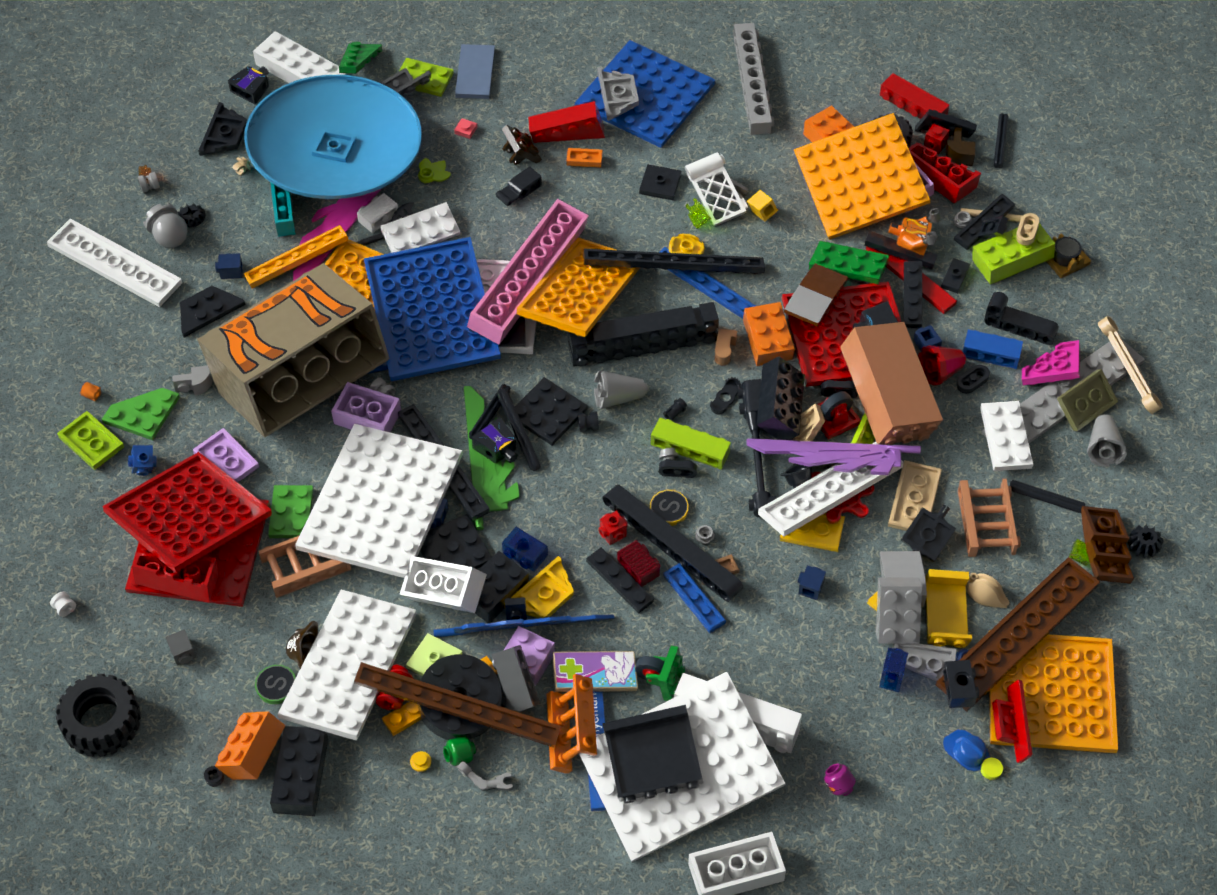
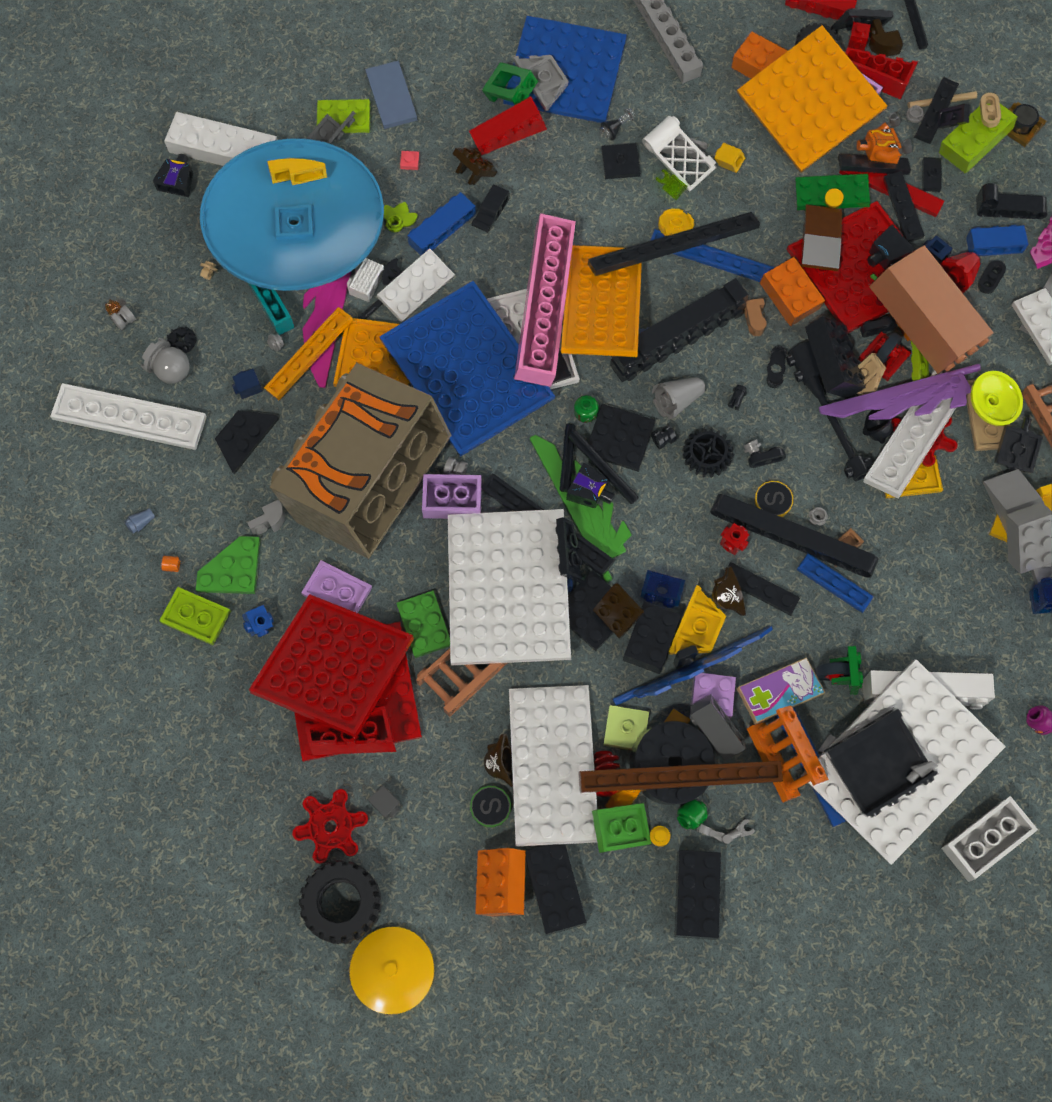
camera: 20 degrees left, 15 degrees up
(63, 604) = (249, 798): white wheel -> none
(81, 348) = (138, 521): none -> sand blue cone
(117, 793) = (391, 970): none -> yellow dish
(122, 639) = (323, 813): none -> red plate
(216, 782) = (470, 925): black bush -> none
(223, 131) = (172, 237): black wing -> none
(271, 240) = (275, 342): none -> light grey plate
(353, 103) = (296, 170): none -> yellow slope
(357, 56) = (272, 115): green wing -> none
(384, 736) = (621, 827): none -> bright green plate
(430, 822) = (697, 894): none -> black brick
(443, 584) = (611, 656): white brick -> none
(445, 487) = (568, 557): none -> black wing
(468, 186) = (441, 224): none -> blue brick
(470, 547) = (618, 610): none -> dark brown plate
(525, 376) = (586, 409): none -> green head
(575, 88) = (496, 84): none -> green panel
(582, 571) = (728, 593): none -> dark brown hat
(584, 157) = (538, 157): orange plate -> none
(622, 453) = (721, 461): none -> black gear
(639, 563) = (772, 566): dark red brick -> none
(663, 152) = (610, 128): none -> piece
(688, 772) = (921, 770): none -> light grey bar
(691, 443) = (767, 427): lime brick -> none
(811, 582) = (934, 532): dark blue brick -> none
(844, 265) = (834, 198): none -> yellow tile
(926, 471) = (1003, 395): none -> neon yellow dish

